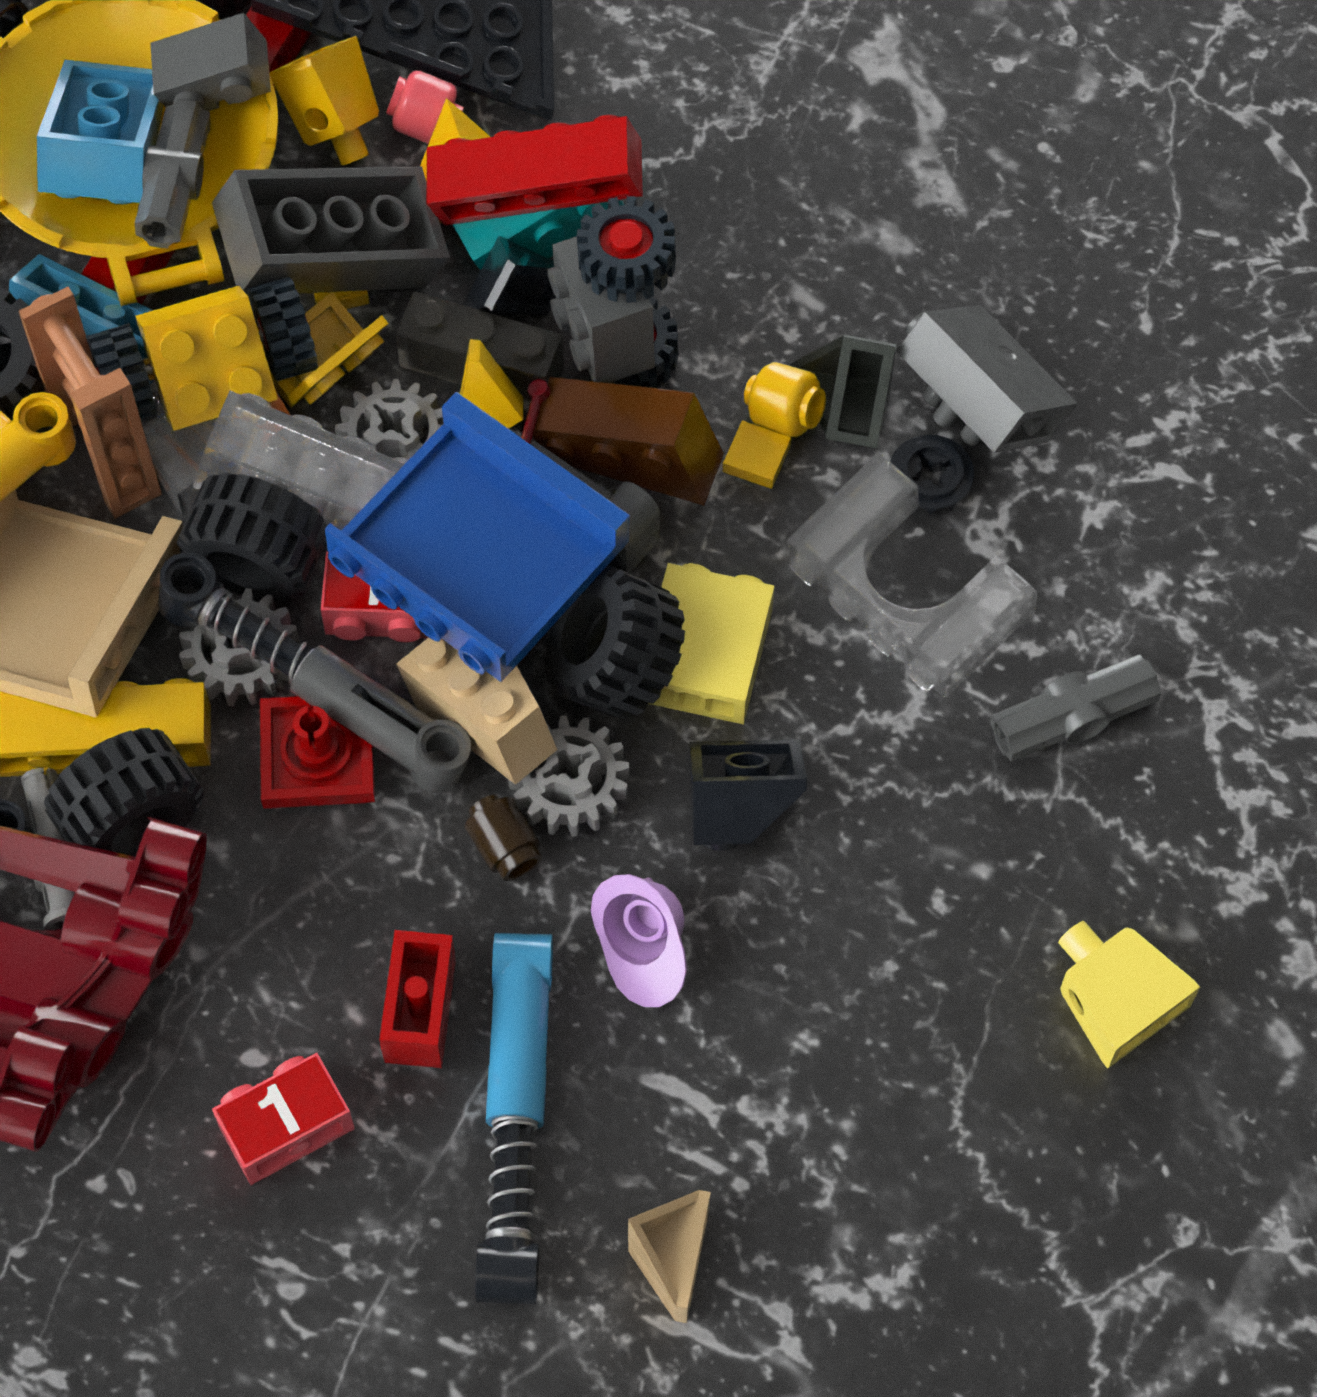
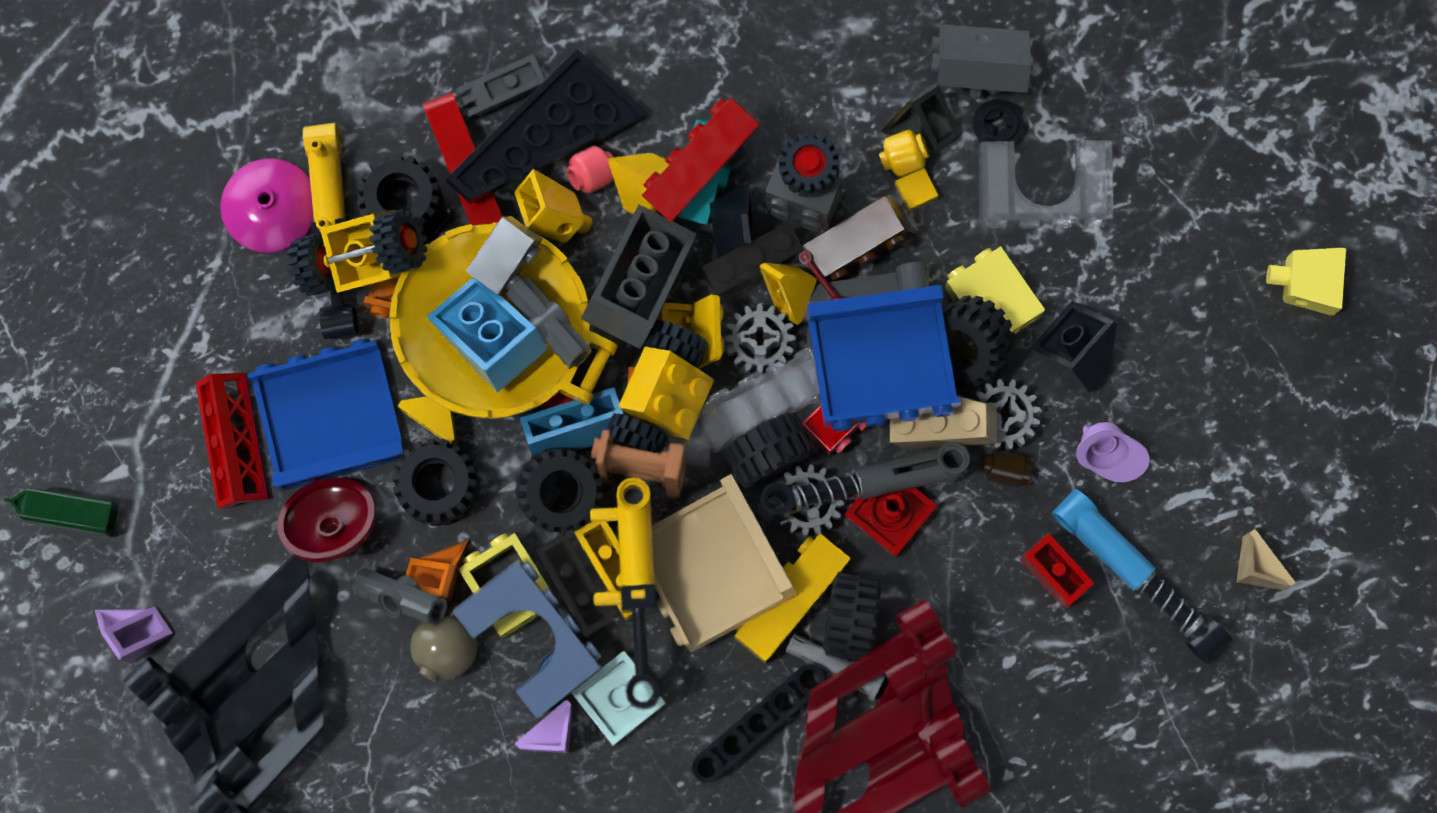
camera: 45 degrees left, 15 degrees up
(283, 1117) = (1055, 673): brick -> none
(1075, 707) = (1168, 173): dark grey piece -> none

